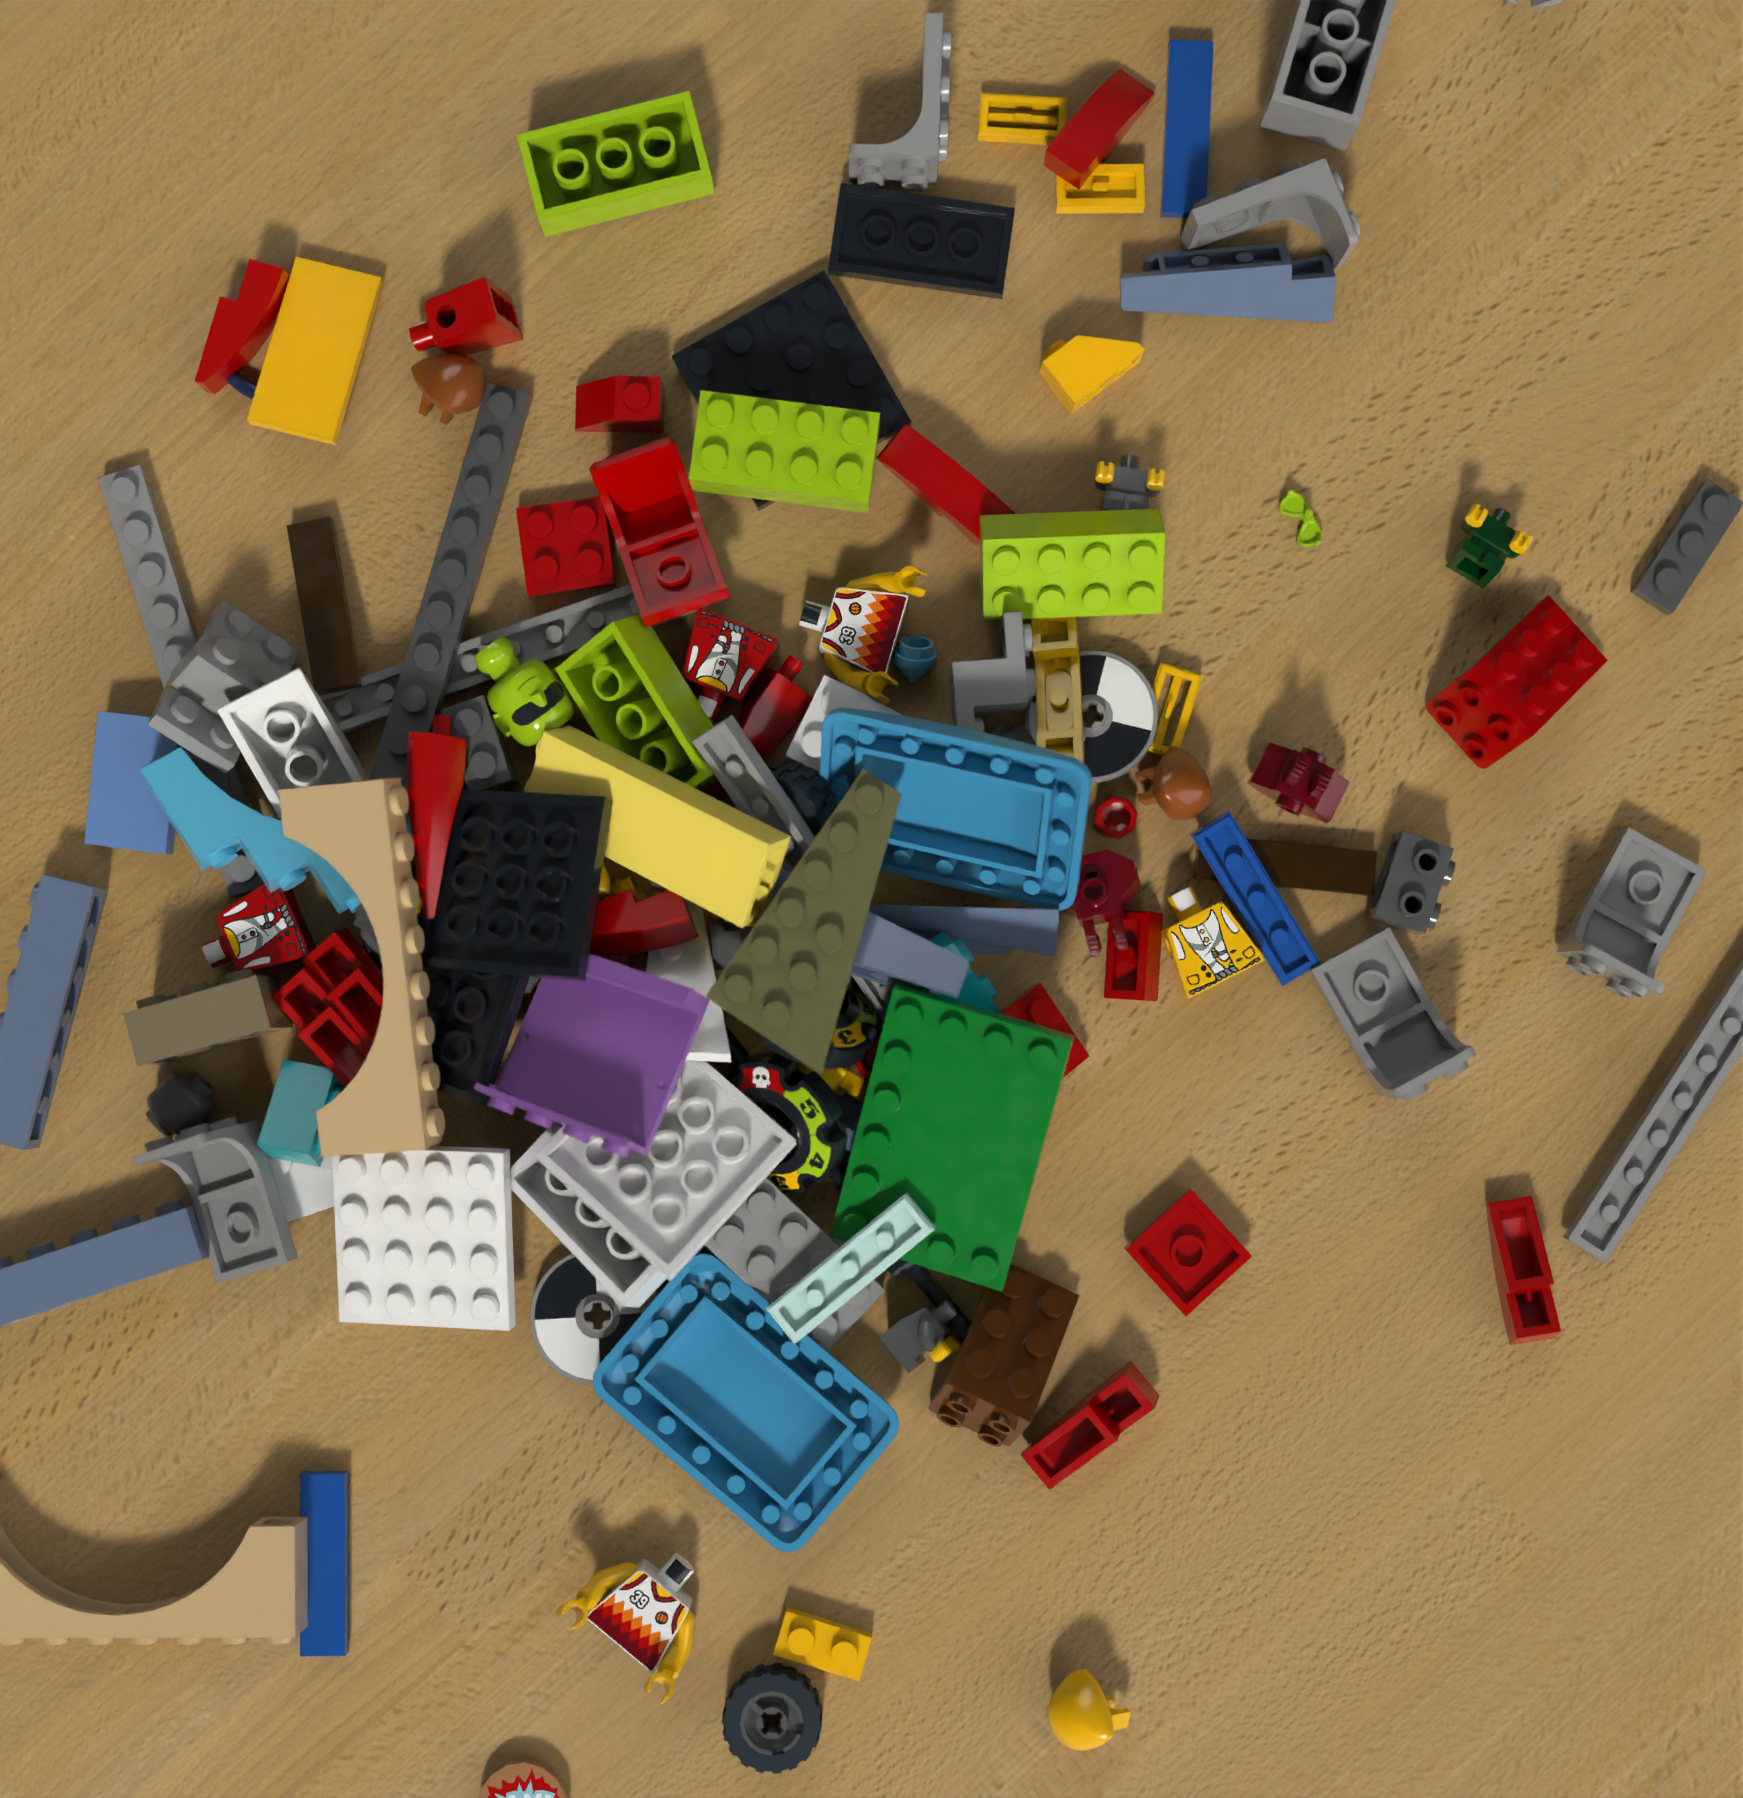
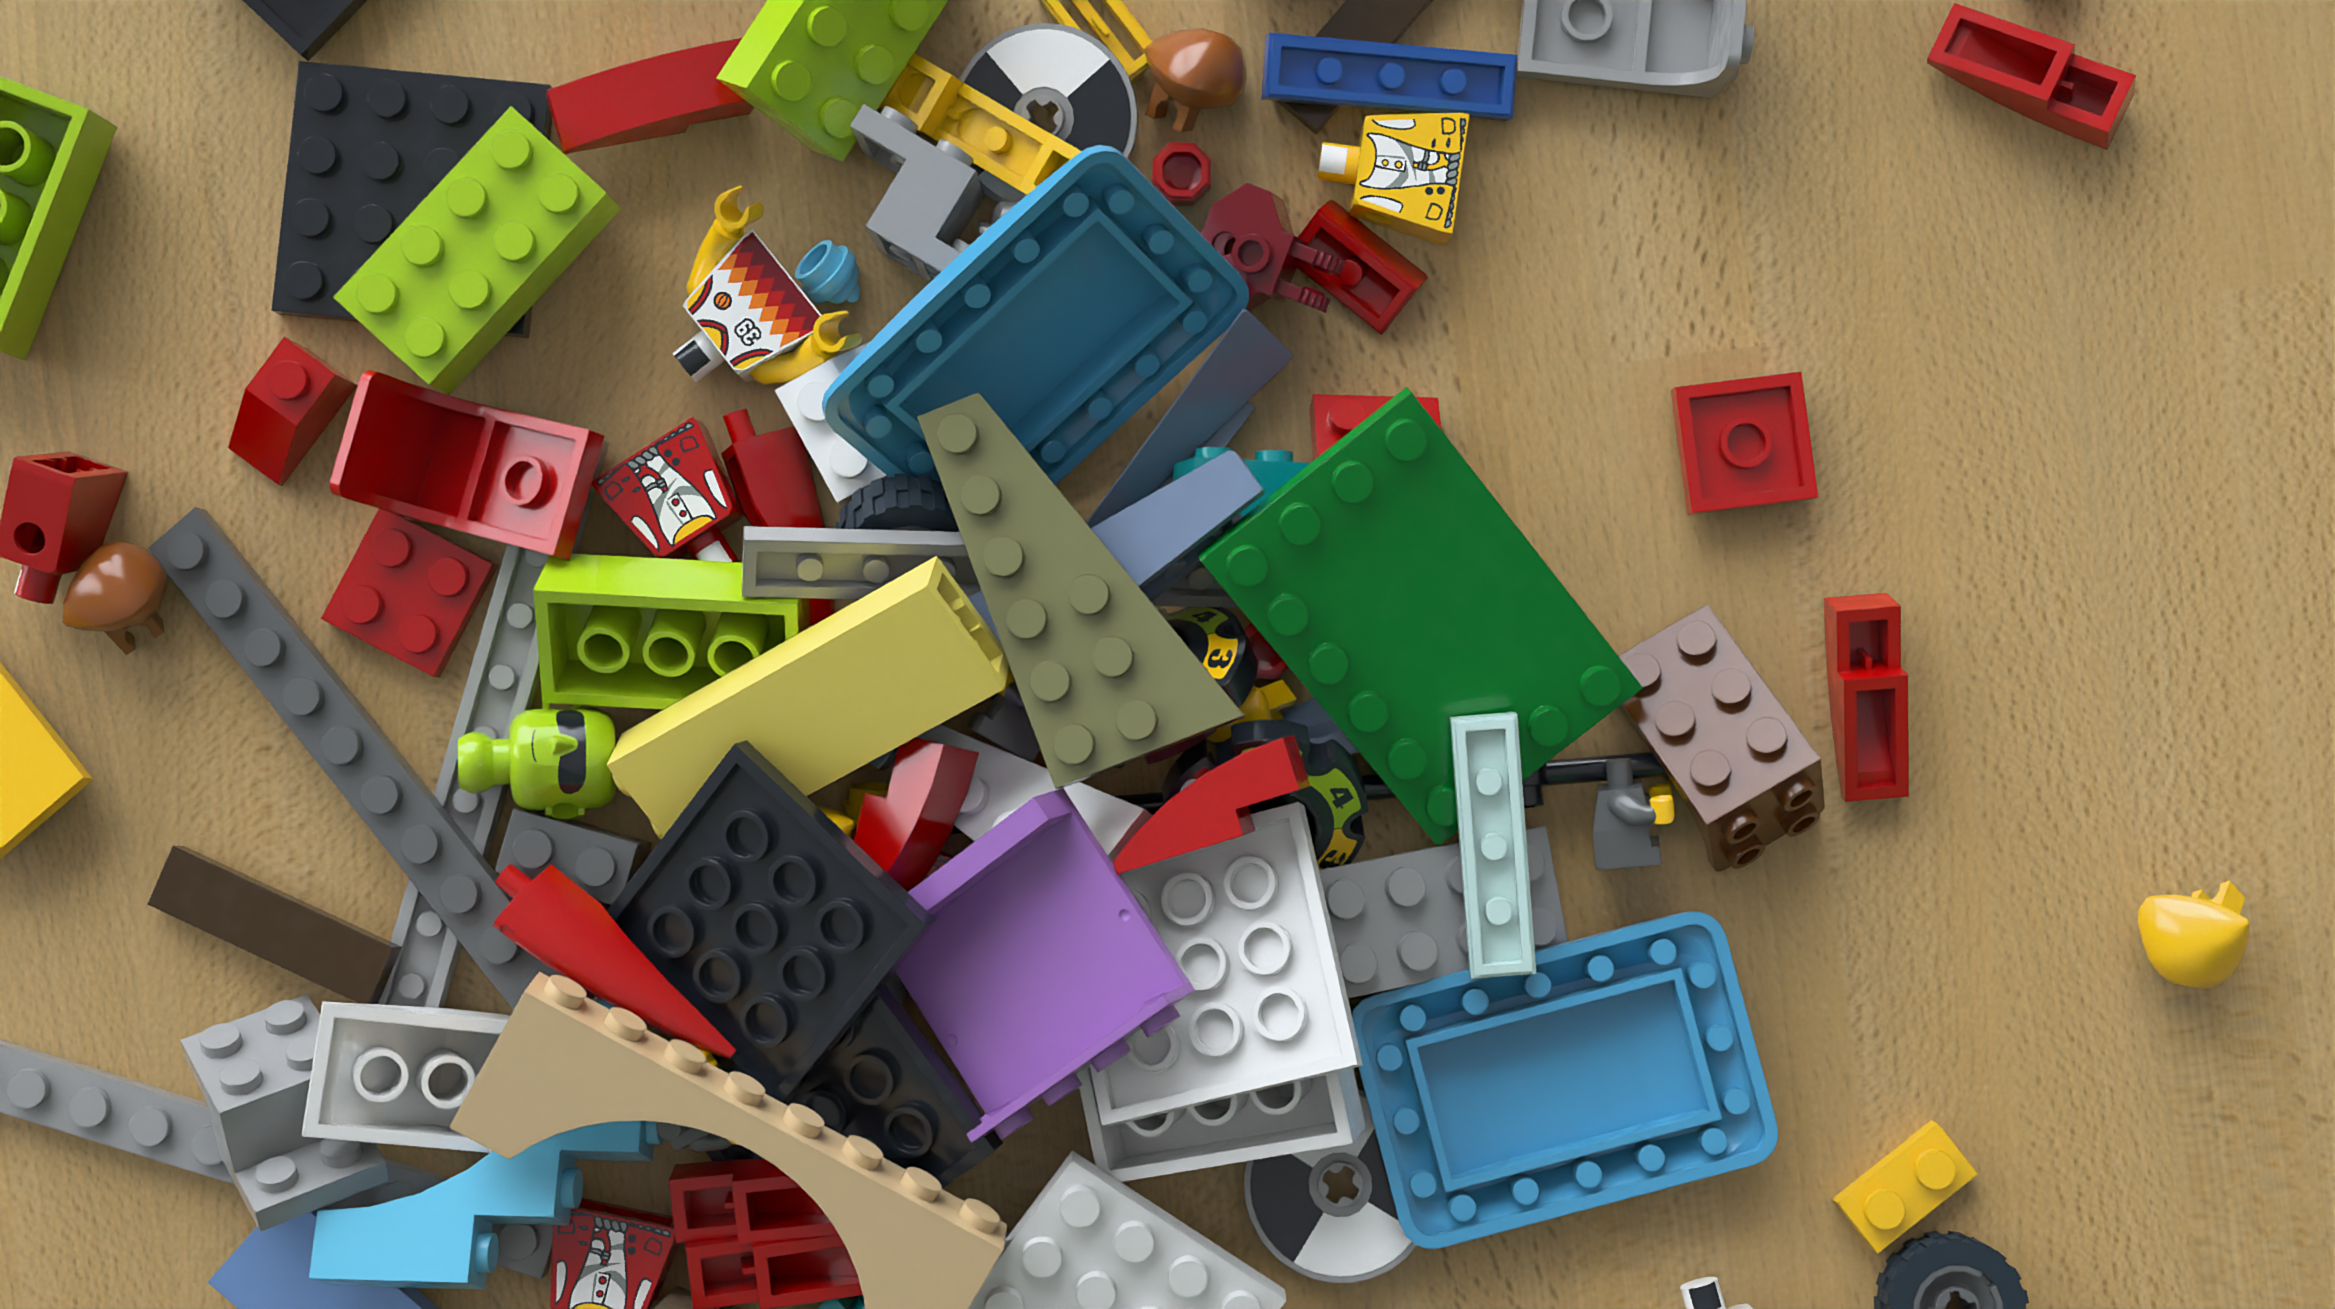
camera: 55 degrees left, 0 degrees up
(760, 1095) = (1216, 804): none -> red slope

